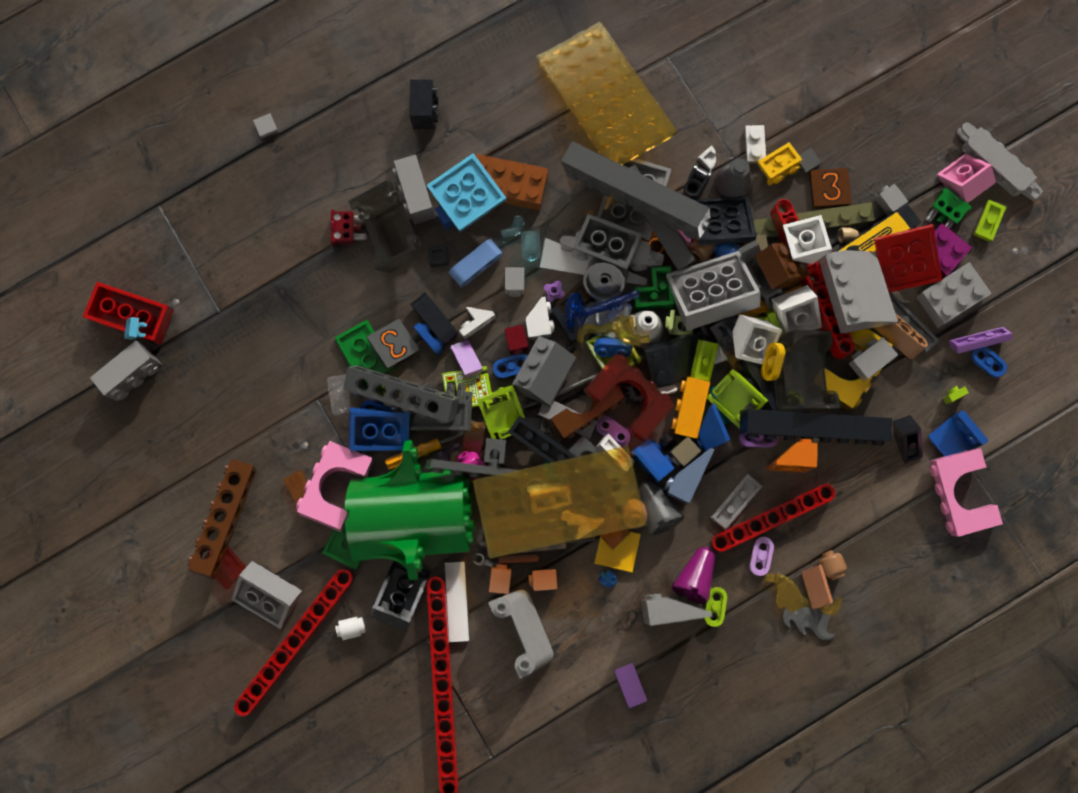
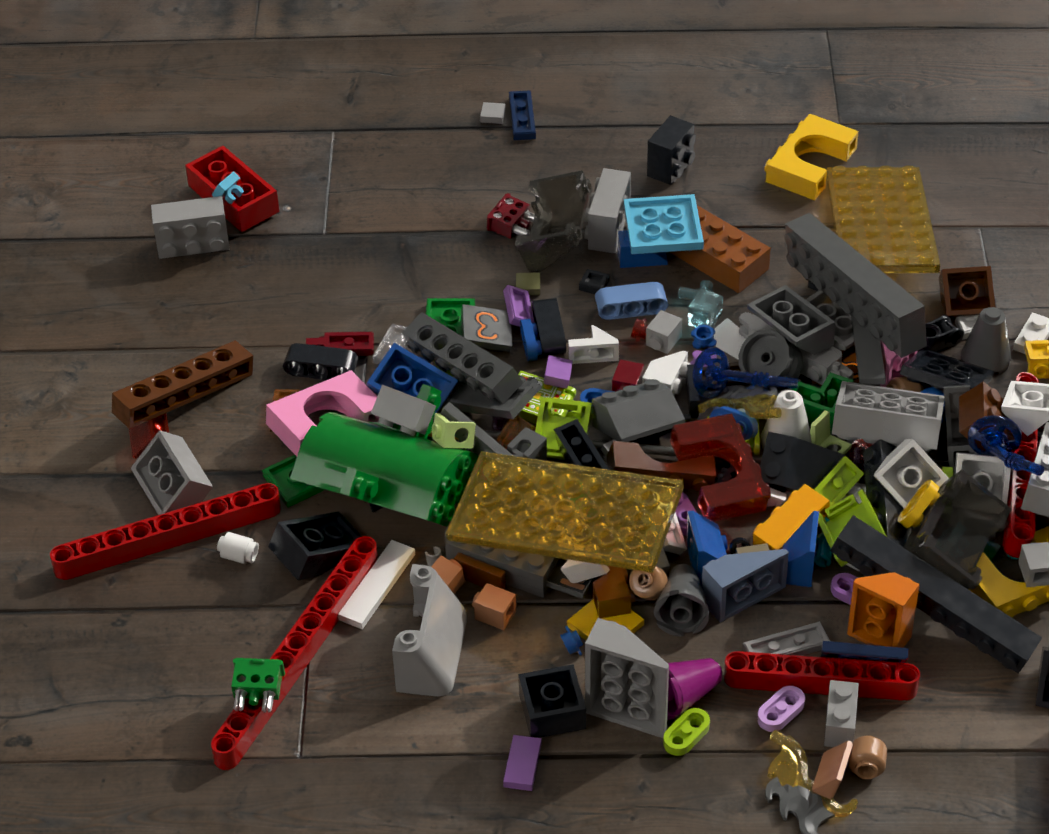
camera: 30 degrees right, 35 degrees down
(288, 116) = (522, 115): none -> dark blue tile
(299, 438) = (318, 361): none -> black beam
(303, 413) = (359, 342): none -> dark red hinge
(394, 283) = (529, 282): none -> olive tile
(400, 477) = (403, 409): none -> light grey brick
(402, 311) = (517, 305): none -> medium lavender tile
(442, 730) = (255, 681): none -> green piece
(445, 484) = (444, 432): none -> yellowish green bracket
(497, 287) = (639, 329): none -> clear red plate
(511, 28) = (811, 135): none -> yellow arch
(547, 269) = (703, 337): none -> blue plate
(626, 637) = (552, 701): none -> black brick
(698, 134) = (966, 290): none -> reddish brown slope
(793, 491) = (863, 652): none -> dark blue tile
(797, 284) = (997, 443): none -> clear blue dish
(800, 542) = (841, 713): none -> light grey brick

